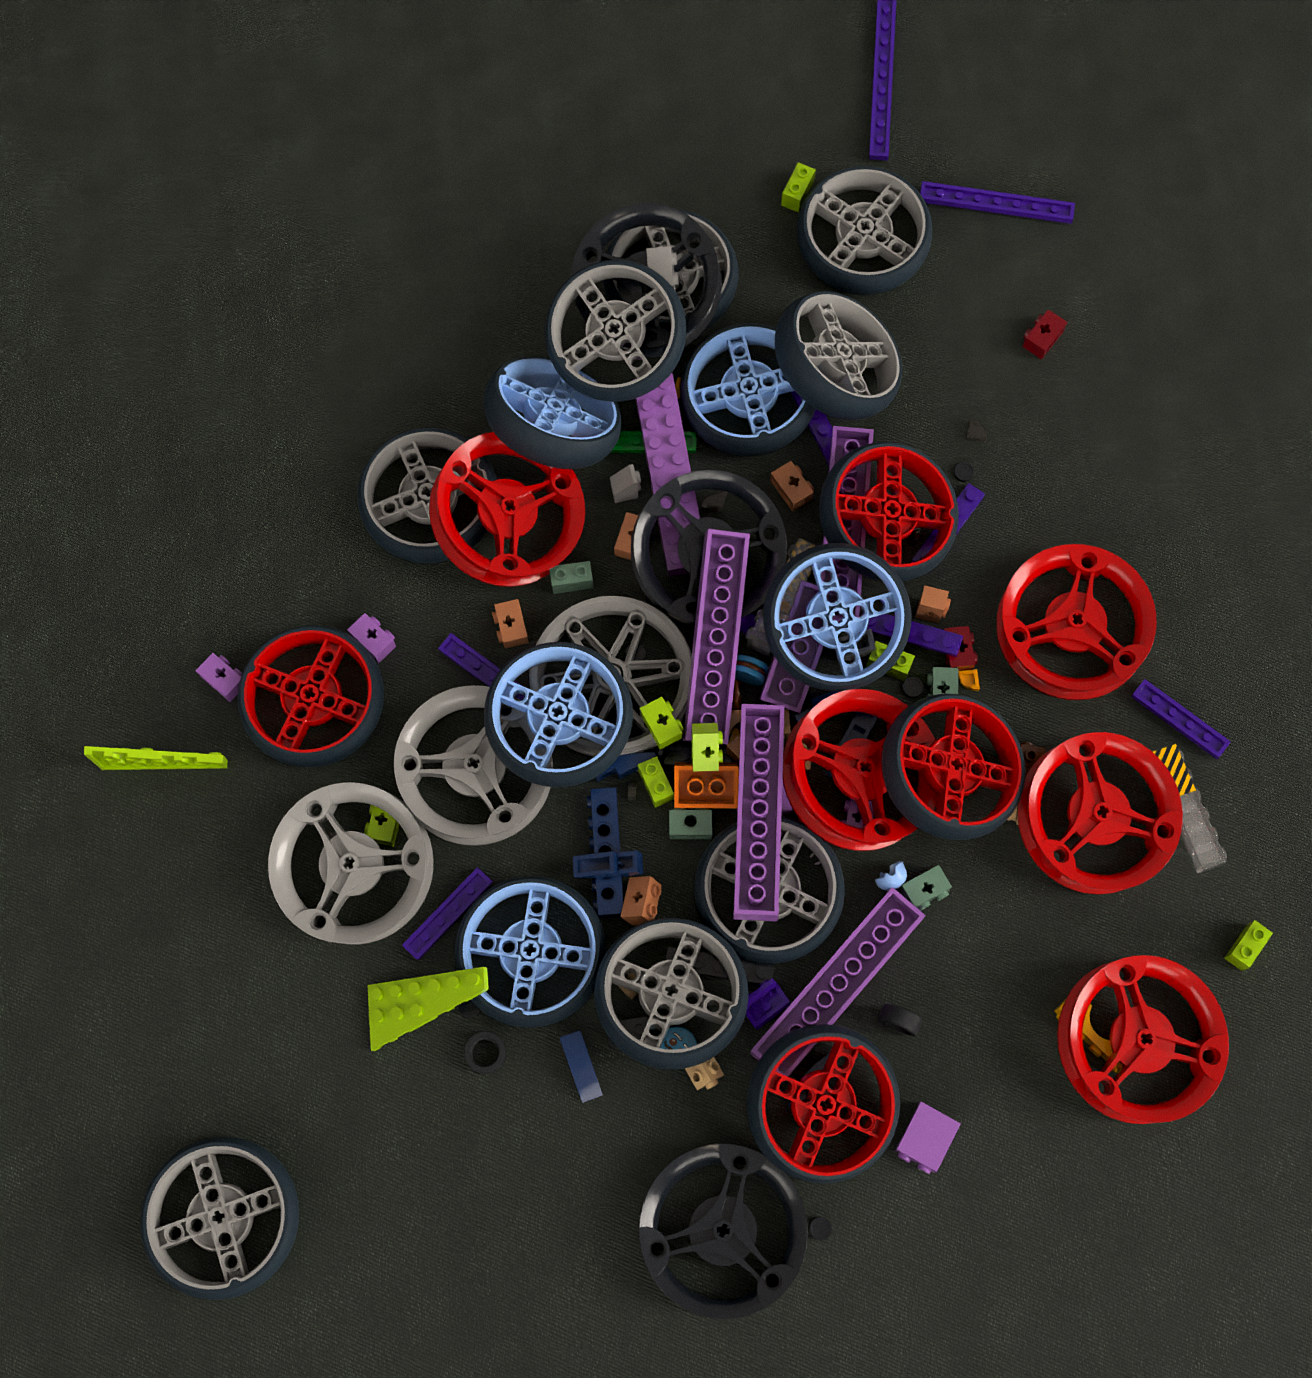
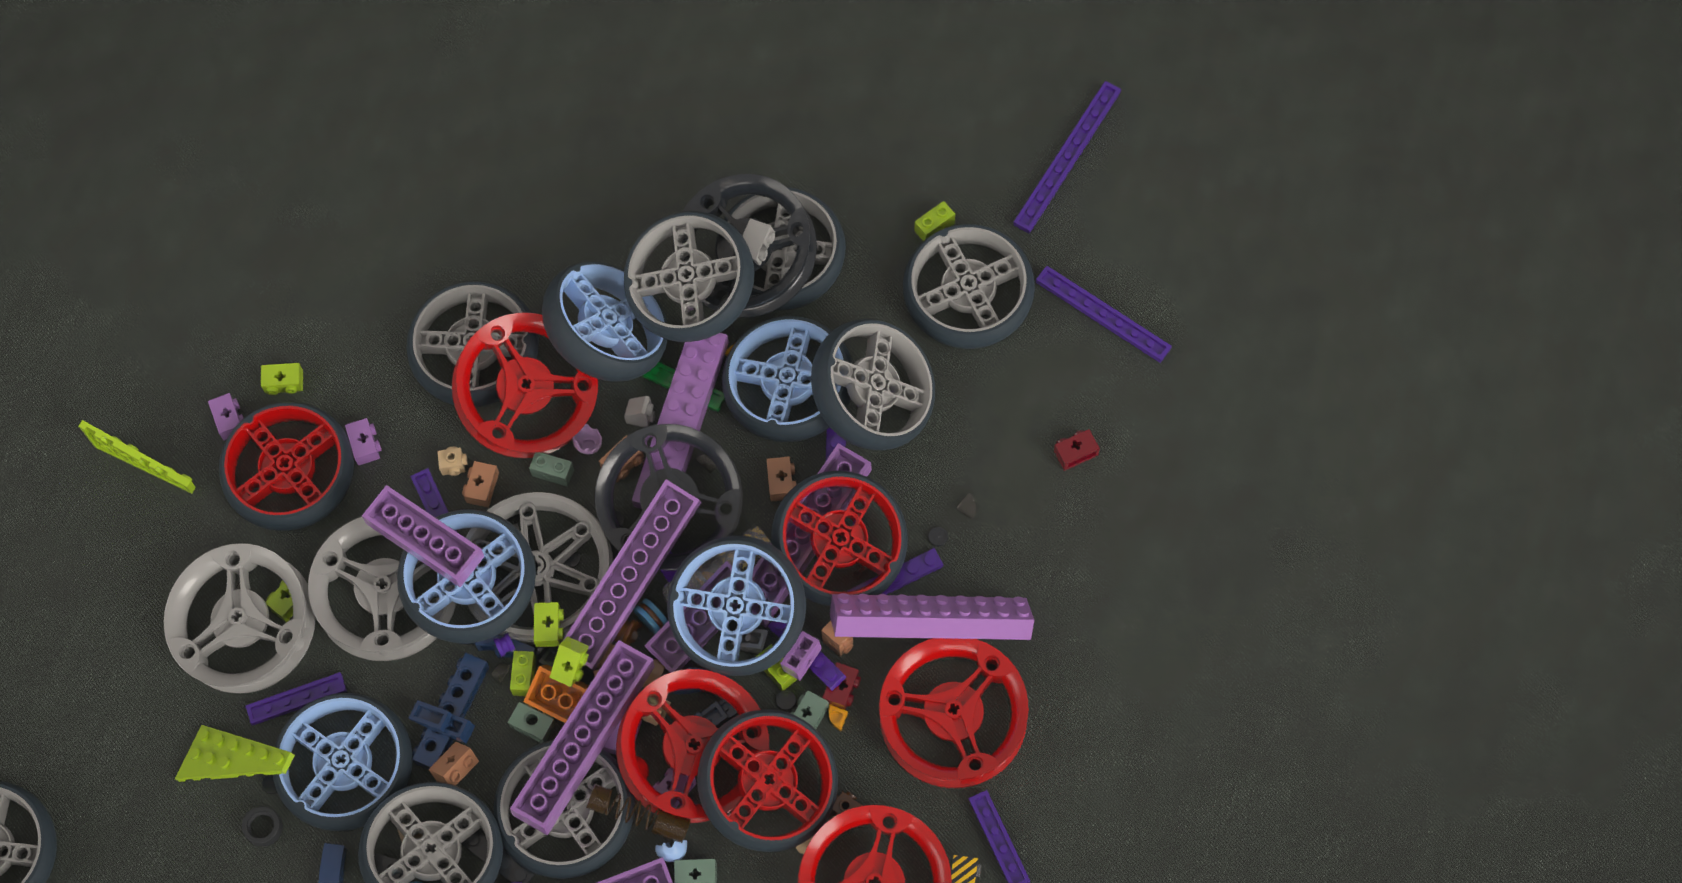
camera: 30 degrees right, 5 degrees down
(245, 615) = (281, 378): none -> lime brick
(471, 615) = (452, 461): none -> tan brick
(502, 694) = (423, 536): none -> medium lavender brick
(592, 535) = (587, 440): none -> lavender hair
(626, 762) = (504, 644): none -> dark purple wheel
(877, 855) = (665, 823): none -> dark brown piece
(916, 643) = (801, 655): none -> medium lavender brick
(1012, 544) = (931, 617): none -> medium lavender brick

